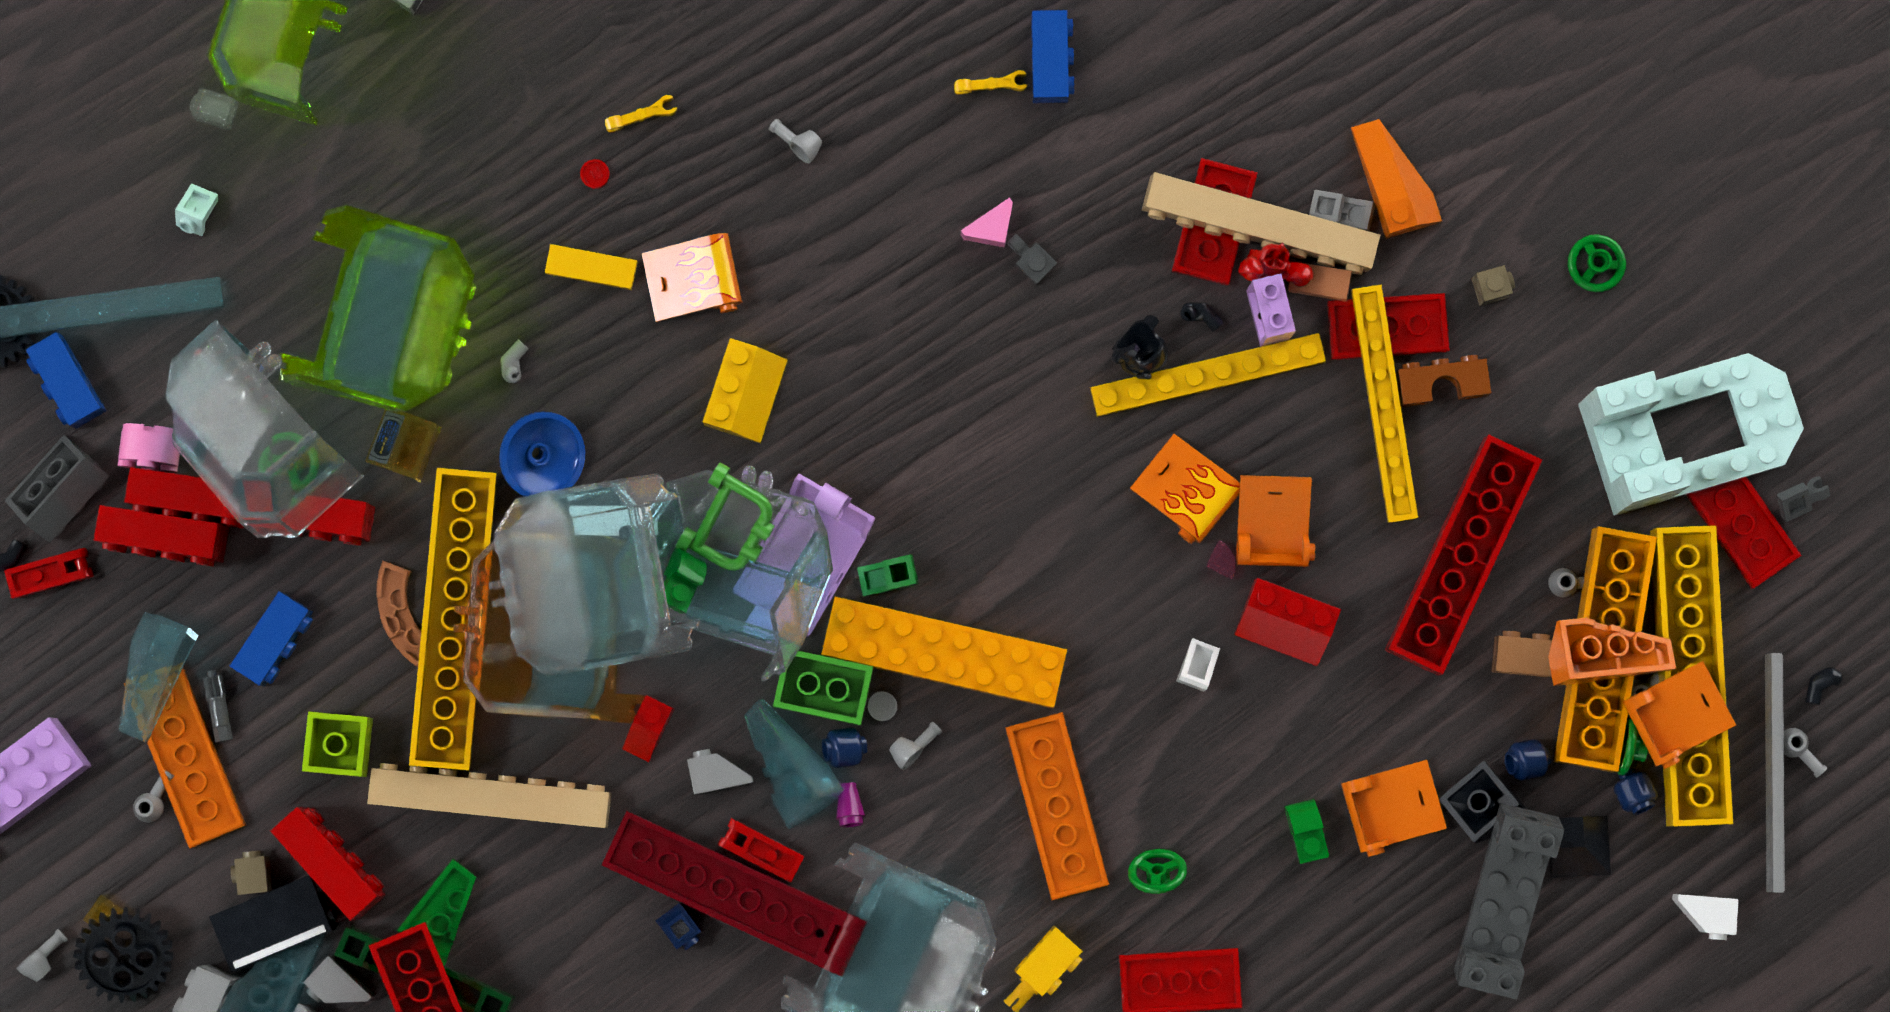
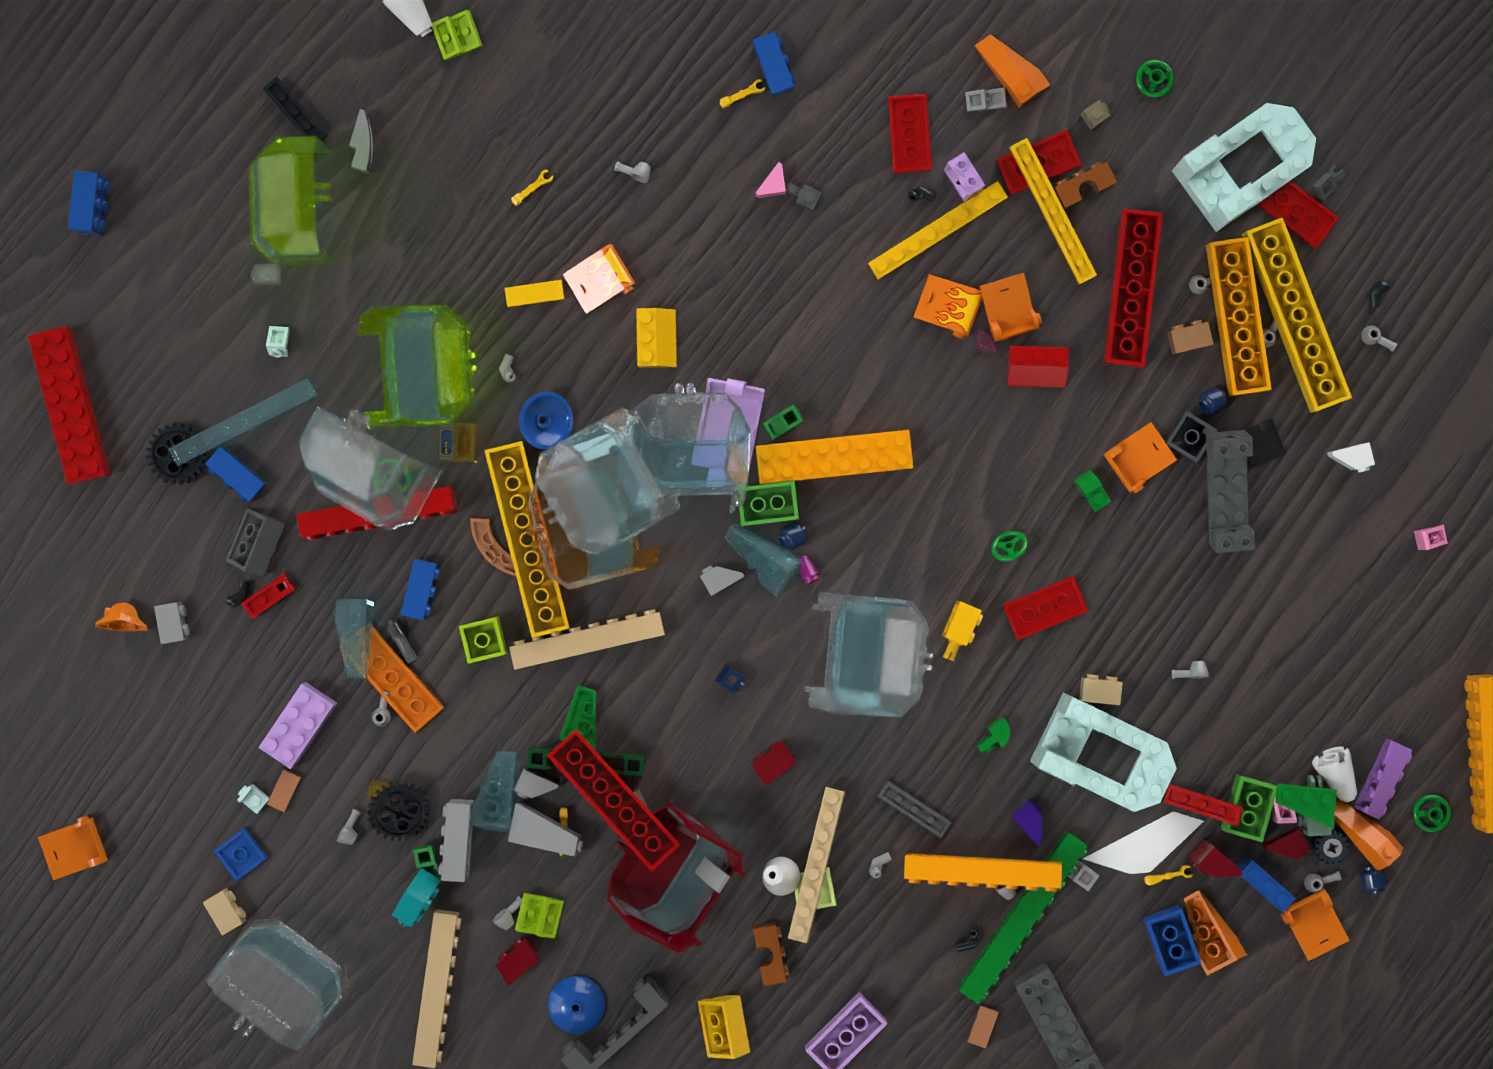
camera: 15 degrees left, 5 degrees up
(148, 448) = (302, 498): bright pink brick -> none
(163, 534) = (329, 548): red brick -> none
(252, 873) = (459, 735): dark tan brick -> none
(273, 922) = (482, 760): black panel -> none
(328, 862) = (503, 713): red brick -> none
(595, 174) = (516, 234): red piece -> none
(647, 728) = (668, 565): red slope -> none
(683, 576) = (659, 466): green brick -> none
(734, 893) = (756, 647): dark red hinge -> none
(760, 530) = (695, 433): bright green bar -> none
(762, 851) = (764, 615): red plate -> none
(882, 706) = (807, 502): light grey piece -> none
(907, 752) = (831, 525): light grey bar -> none
(1057, 806) = (934, 527): orange tile -> none
(1141, 349) = (891, 228): black helmet -> none
(1198, 665) = (992, 412): white slope -> none
(1260, 222) = (939, 124): tan brick -> none
(1274, 261) = (955, 146): red head -> none
(1327, 283) = (988, 148): nougat tile -> none
(1596, 651) = (1234, 320): orange wedge -> none
(1632, 748) = (1276, 371): green piece -> none
(1635, 792) = (1285, 398): dark blue head -> none
(1677, 714) = (1297, 341): orange door -> none
(1774, 773) = (1366, 357): light grey tile -> none

